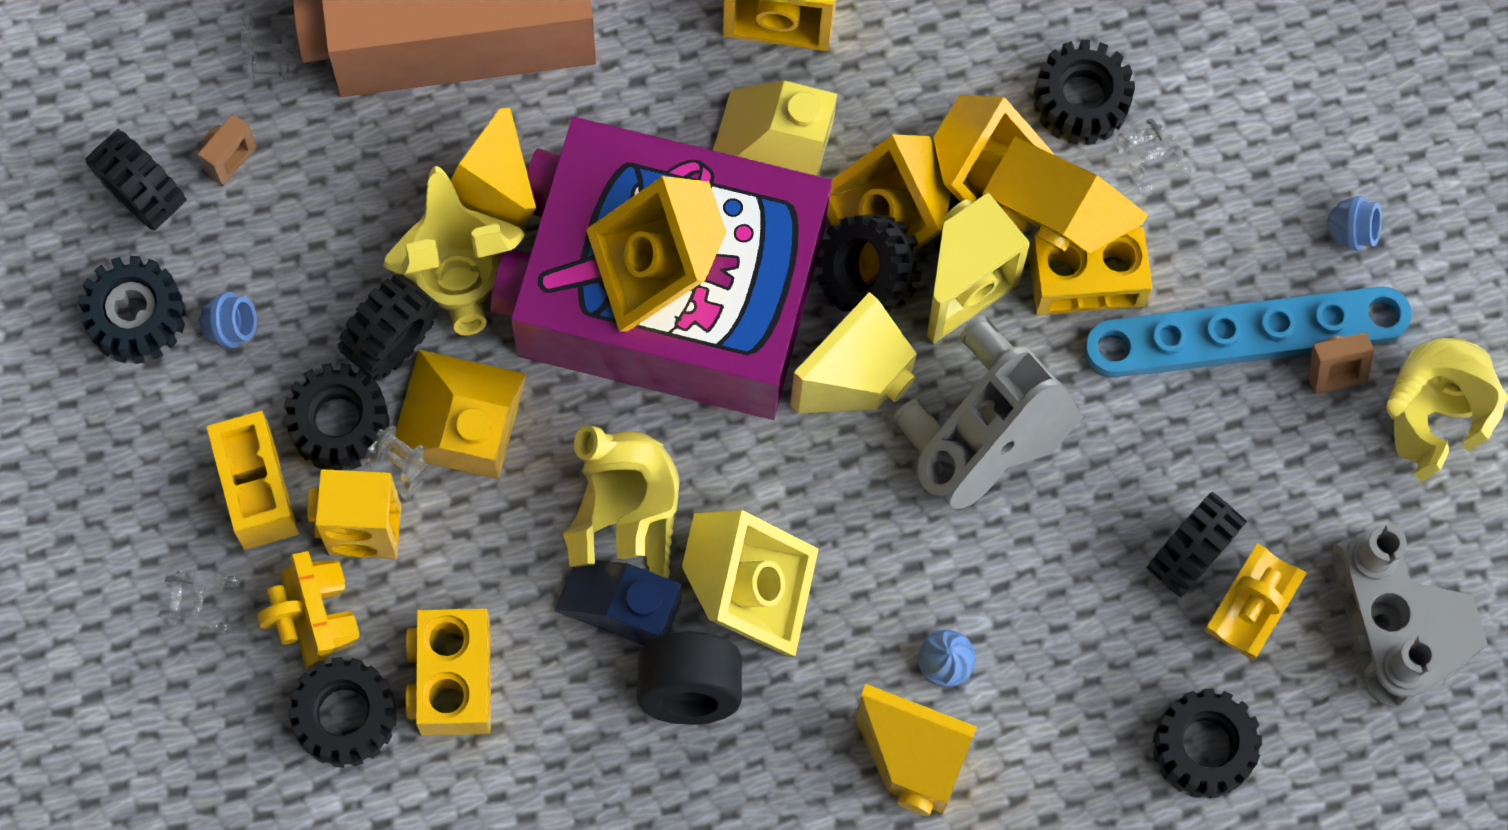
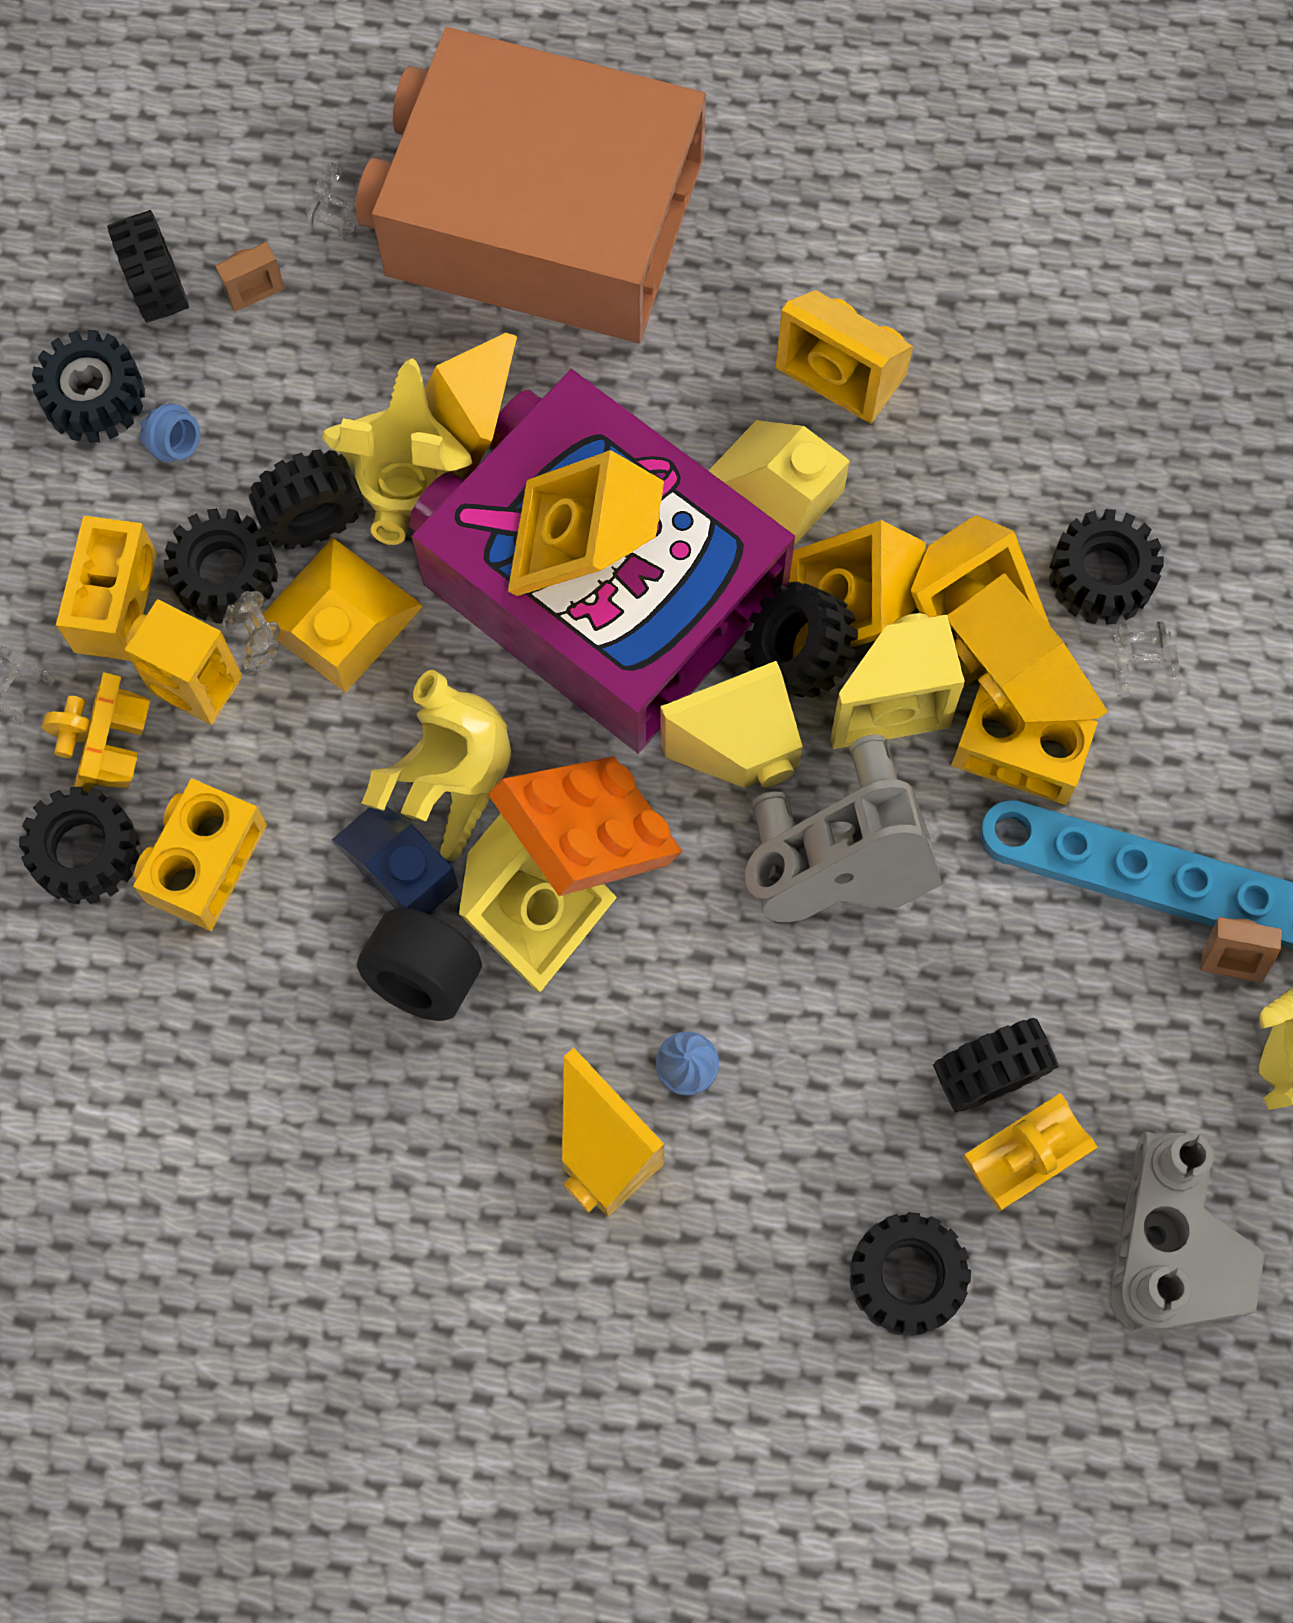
camera: 30 degrees right, 0 degrees up
(774, 497) = (585, 824): none -> orange plate

